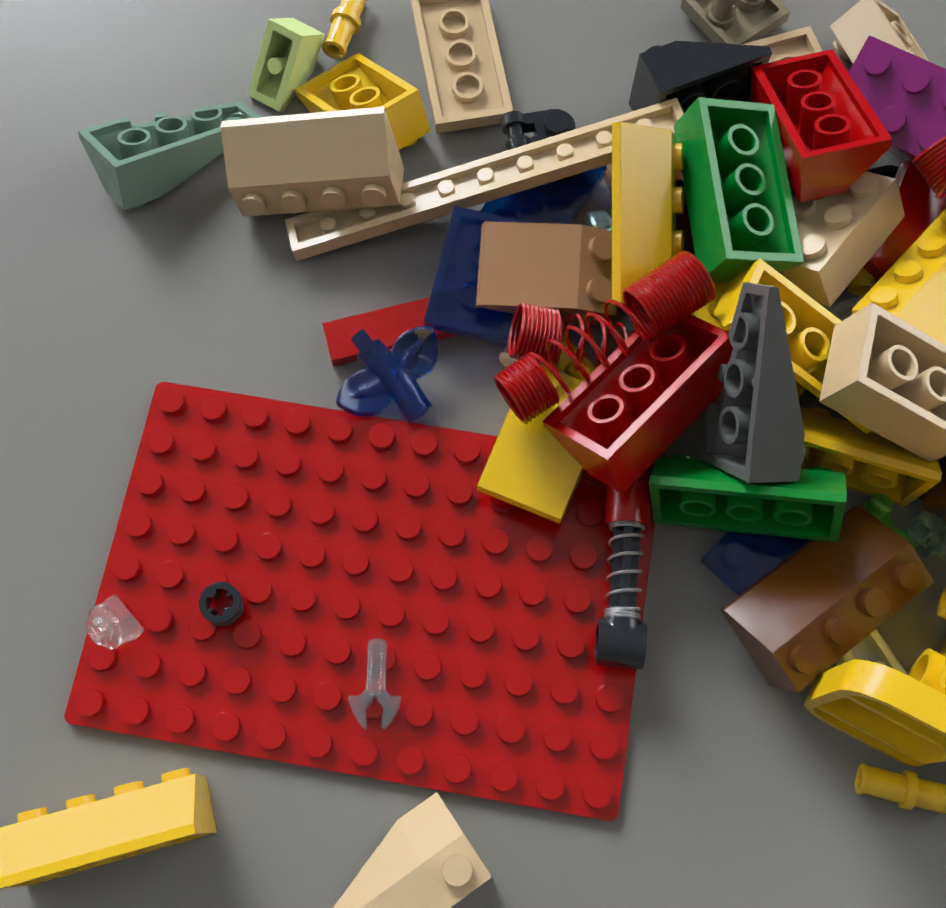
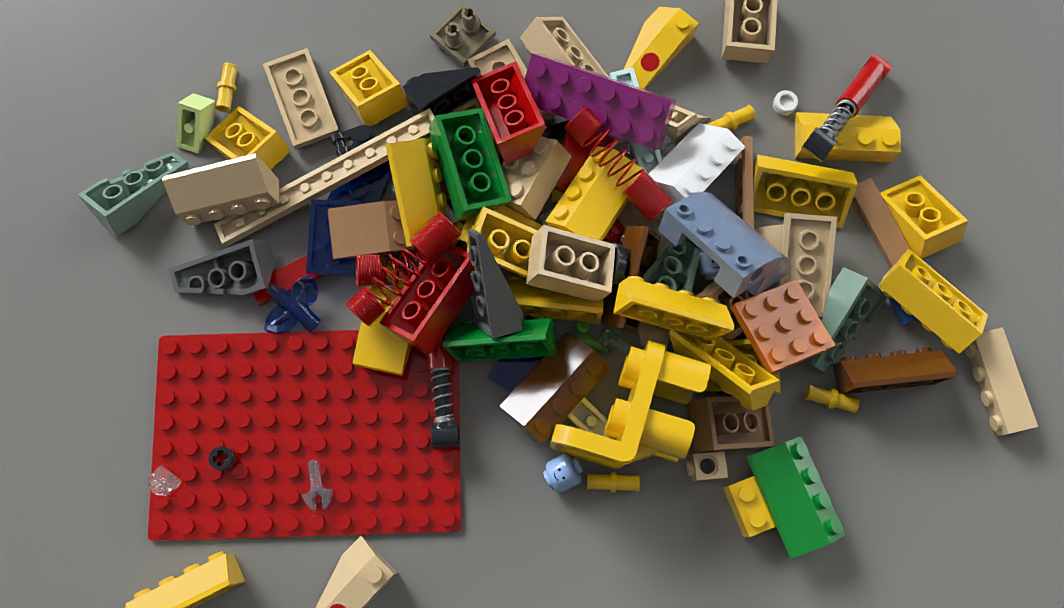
camera: 10 degrees left, 5 degrees up
(294, 296) = (229, 271): none -> dark grey wedge
(575, 62) = (369, 88): none -> yellow slope
(821, 753) = (563, 472): none -> light blue head

